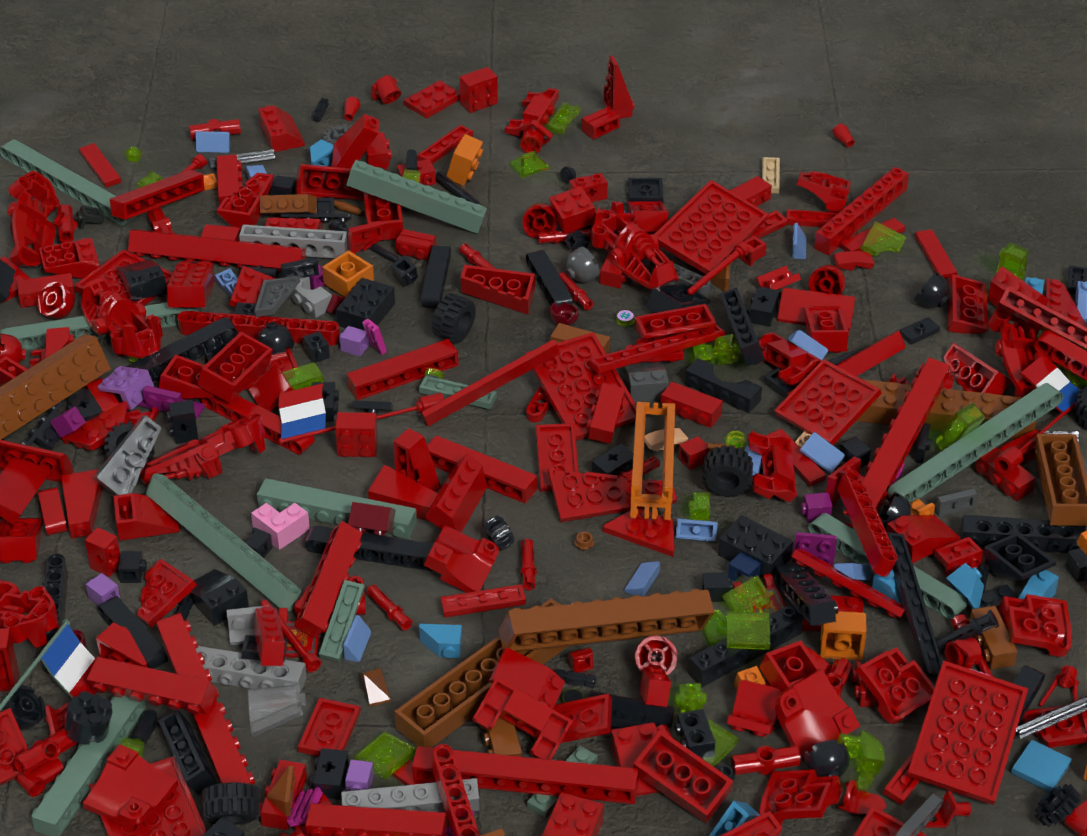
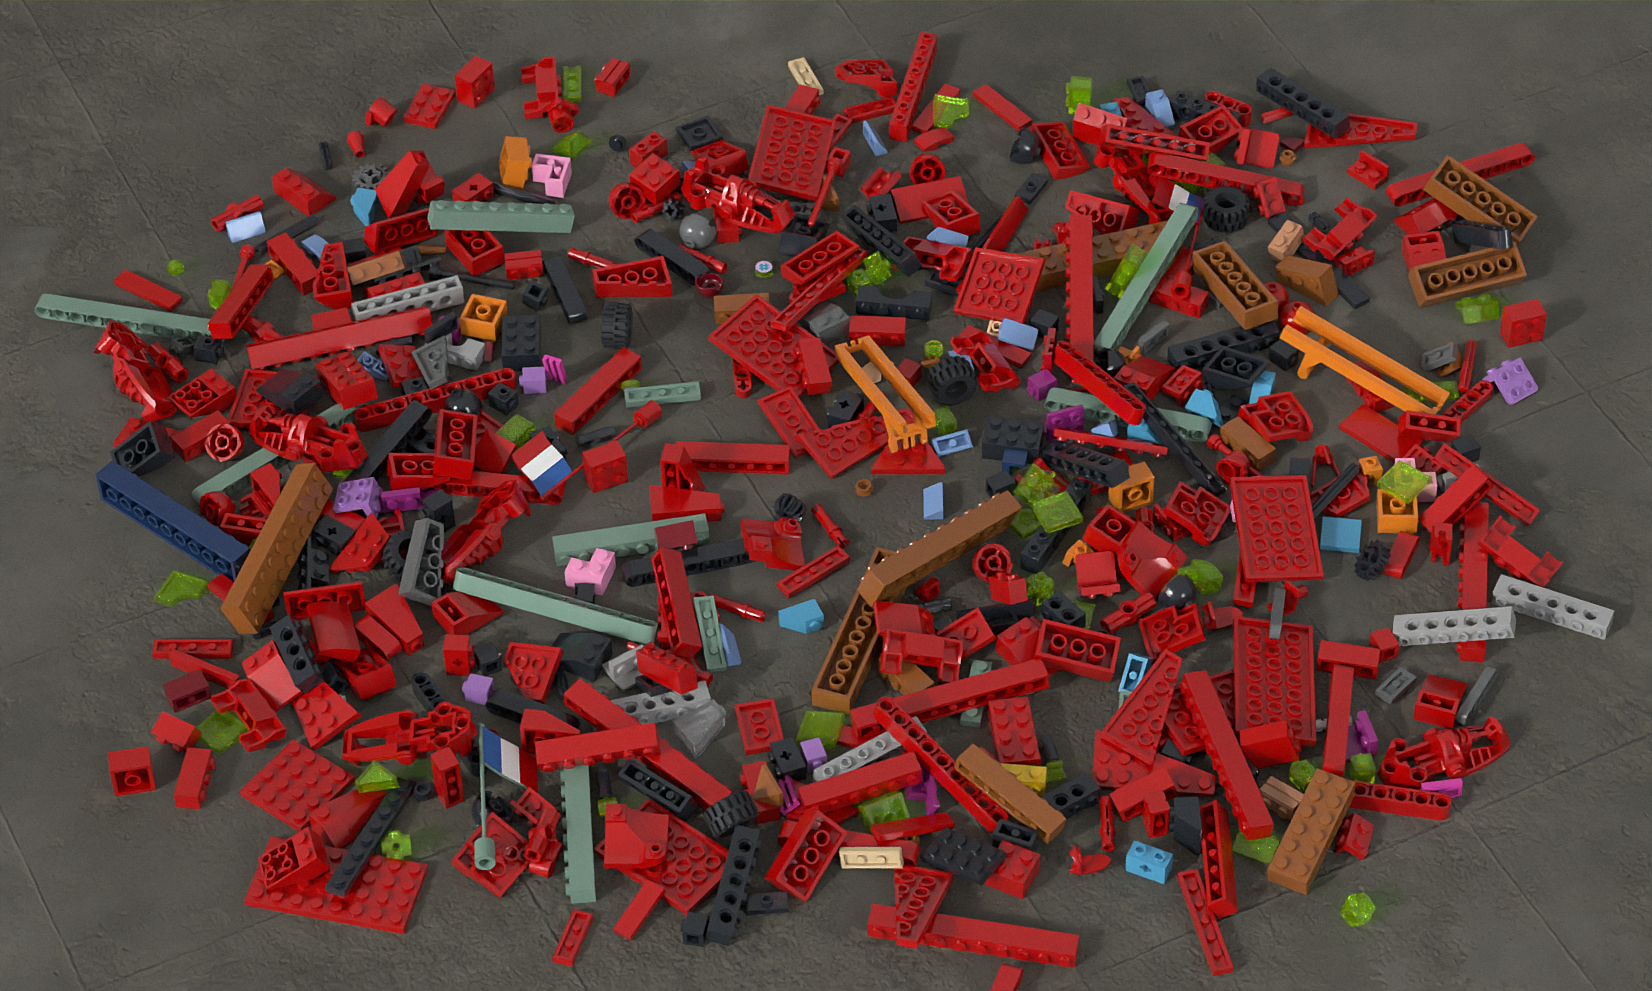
camera: 25 degrees left, 5 degrees up
(67, 421) = (332, 552): magenta brick -> none
(88, 718) = (564, 794): black brick -> none
(106, 224) = (208, 349): none -> black brick
(364, 236) = (474, 274): red wing -> none
(375, 687) = (770, 678): dark orange slope -> none
(411, 166) = (471, 188): piece -> none
(444, 145) = (475, 151): red tile -> none
(458, 495) = (731, 487): red slope -> none
(490, 383) = (694, 375): red tile -> none
(492, 180) = (552, 171): none -> bright pink brick
(616, 92) = (613, 38): red wedge -> none
(843, 134) = (848, 12): red cone -> none
(865, 780) = (1214, 597): clear neon green arm -> none
(977, 625) = (1234, 439): black pin -> none

